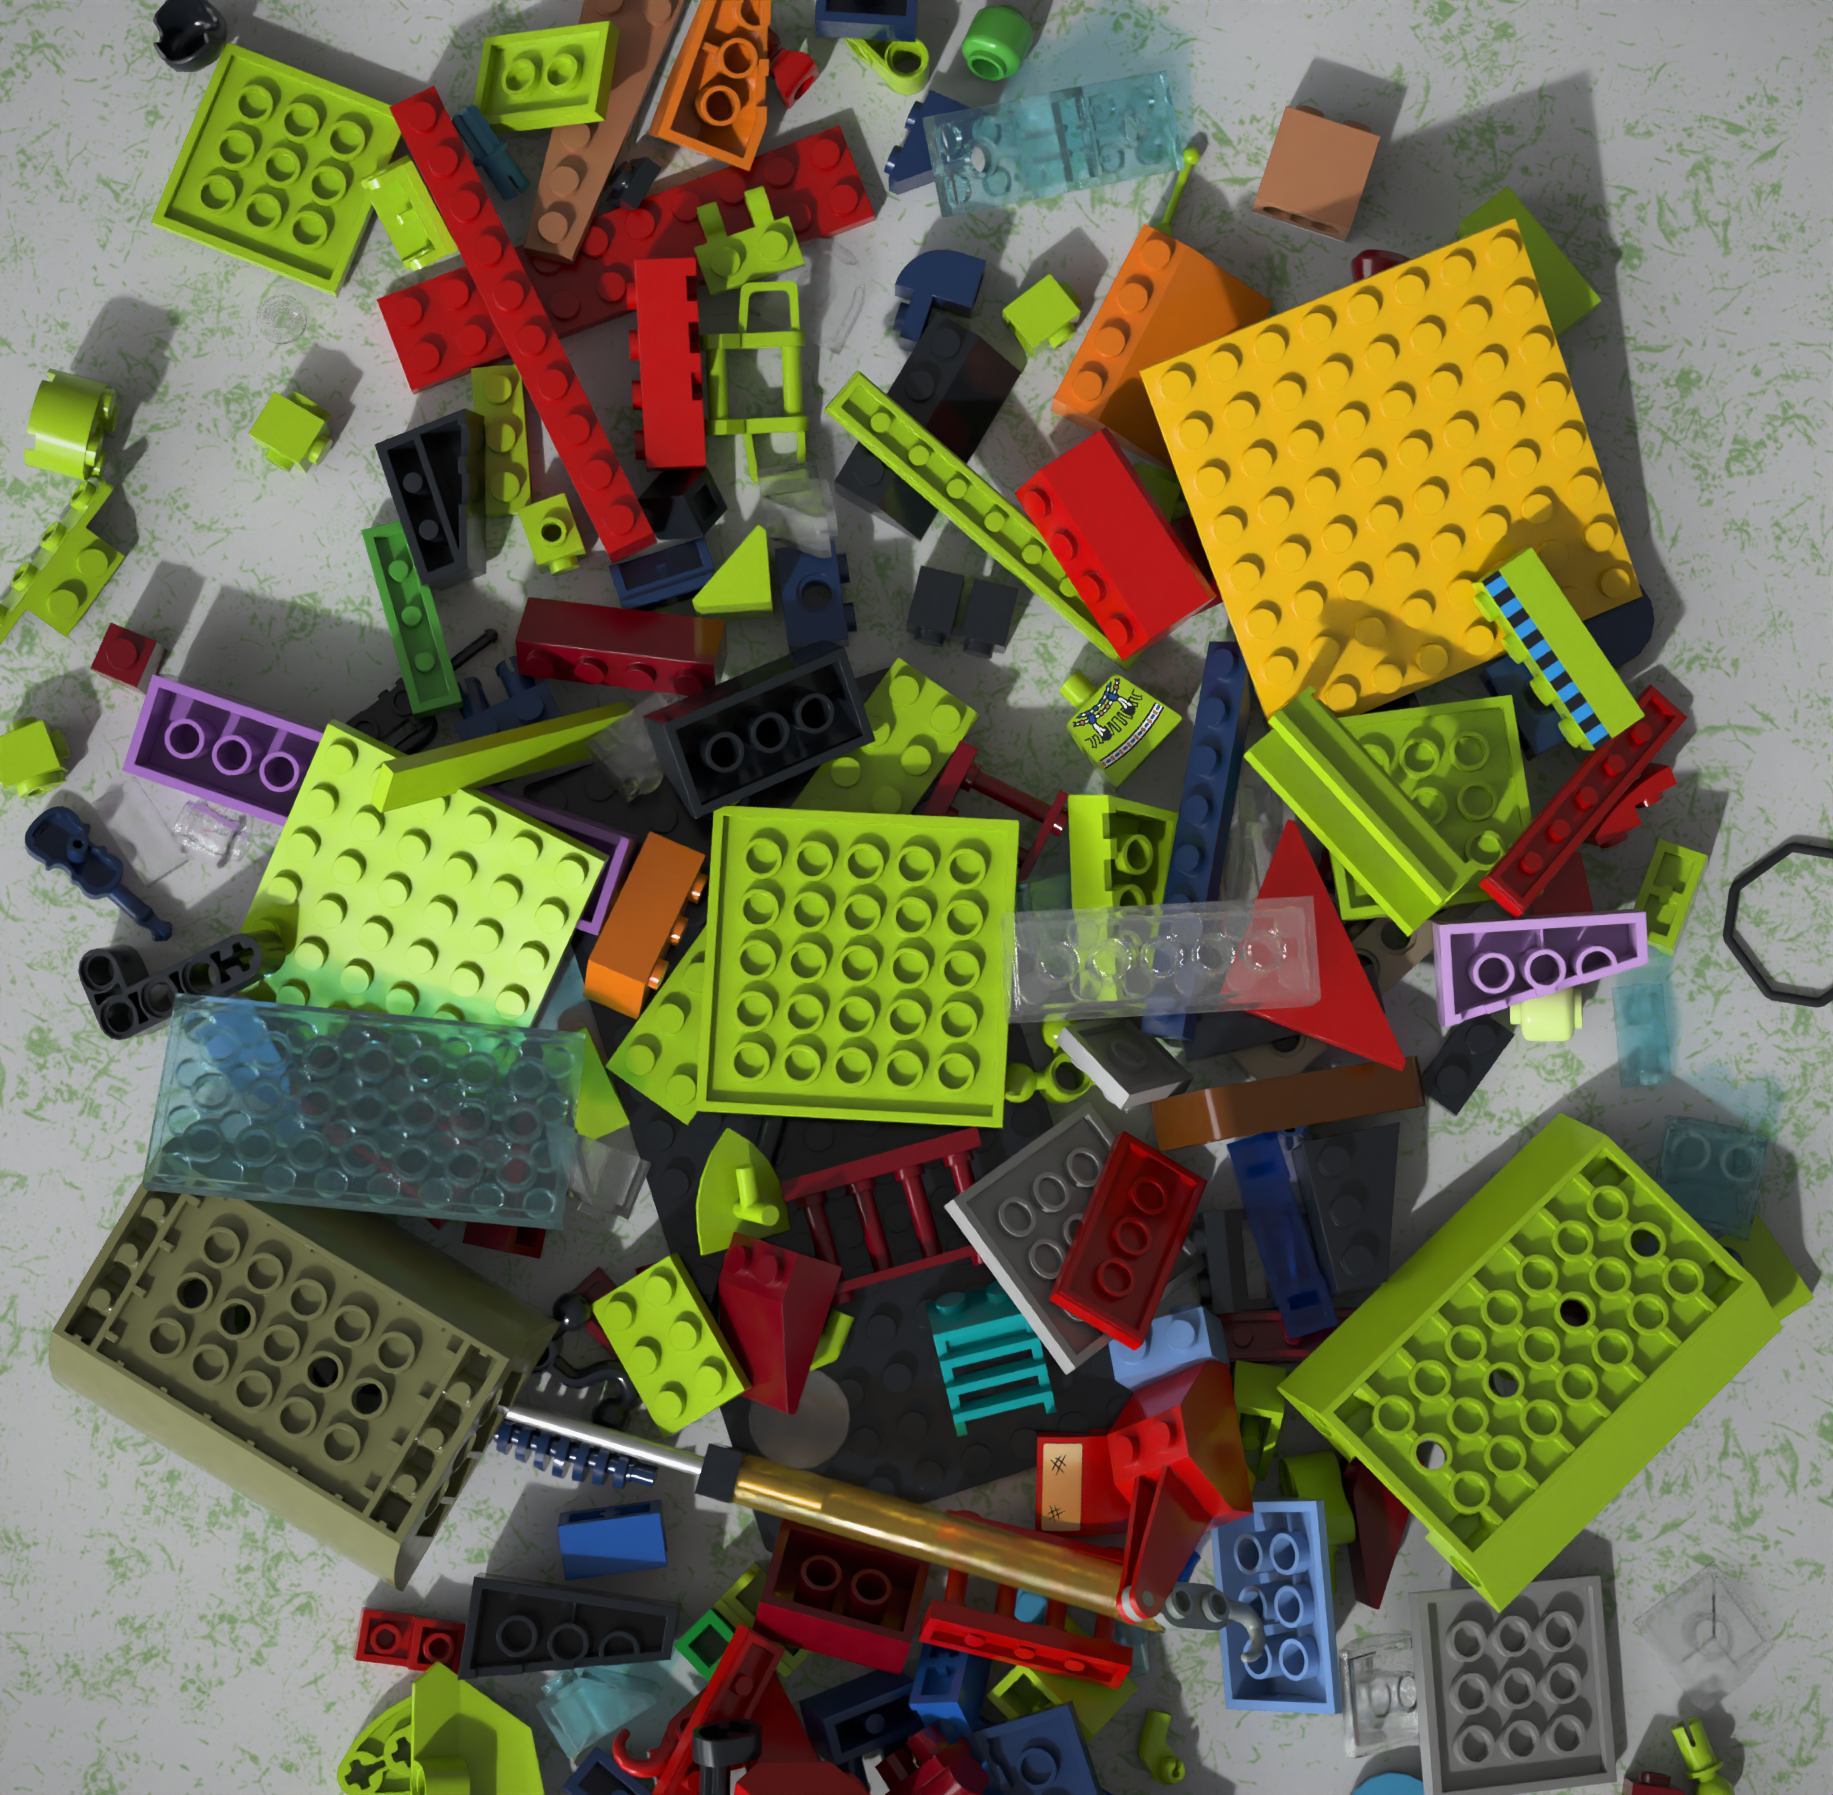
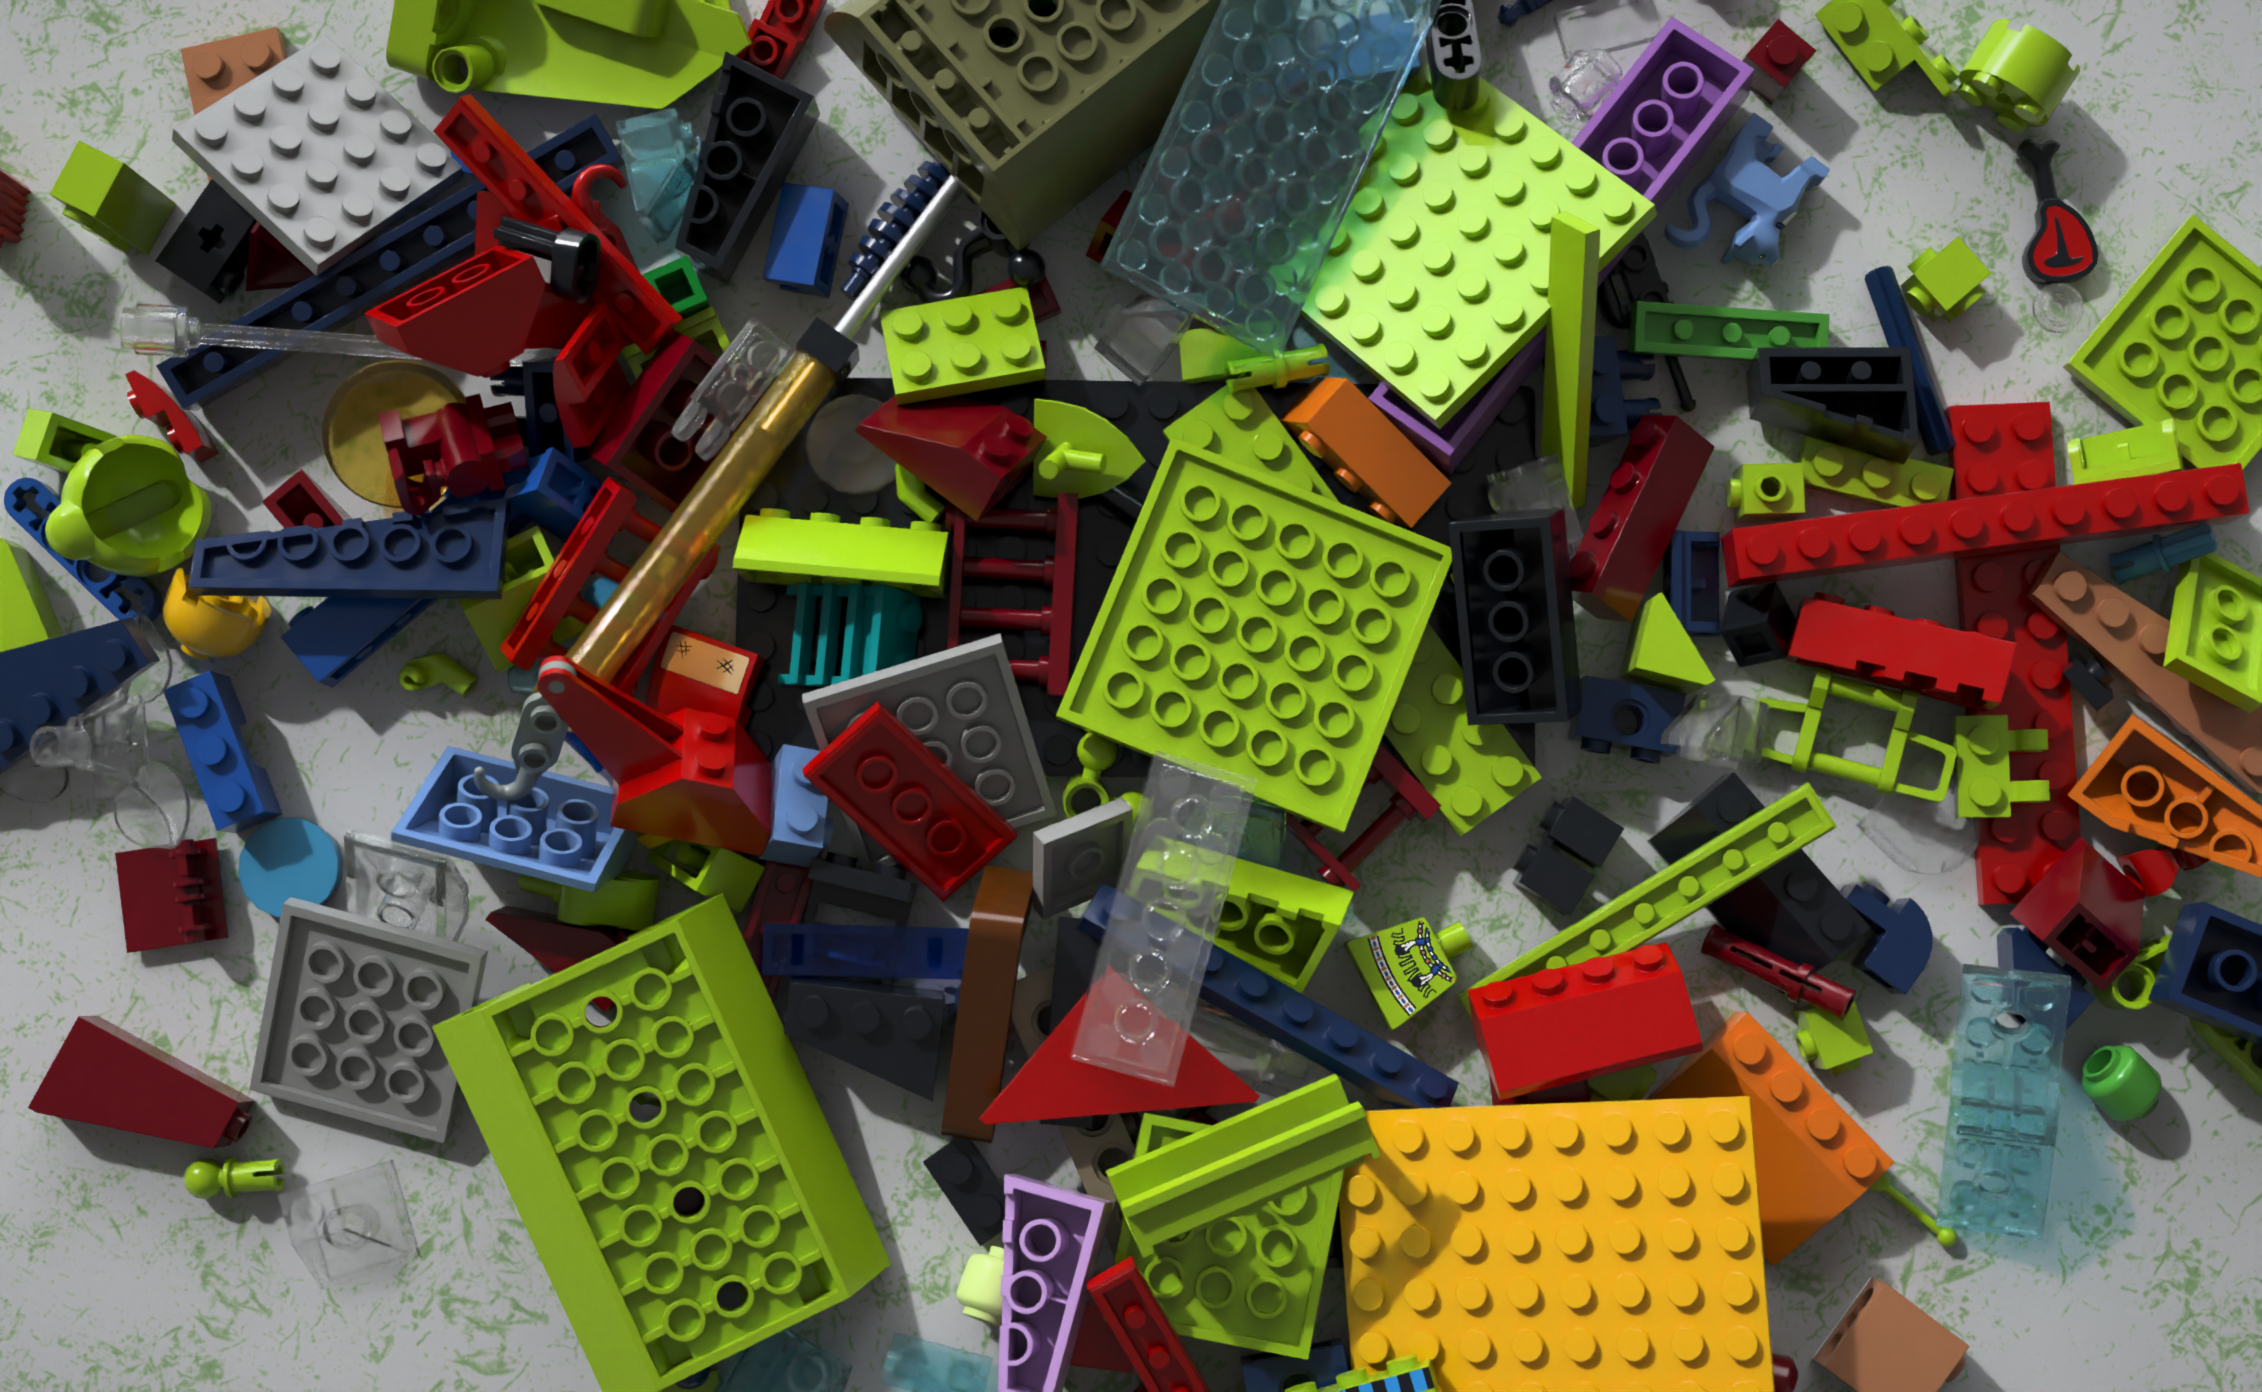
camera: 115 degrees right, 0 degrees up
(215, 334) = (2062, 241): none -> black piece
(263, 642) = (1752, 191): none -> medium blue animal
(363, 453) = (1901, 333): none -> dark blue axle
(599, 1045) = (1268, 371): none -> lime pin
(791, 1551) = (733, 386): none -> clear hinge
(827, 1693) = (589, 378): none -> red slope
(856, 120) = (2086, 914): none -> dark red slope
(913, 1388) = (842, 554): none -> lime slope
(1015, 324) = (1833, 998): none -> dark red pin

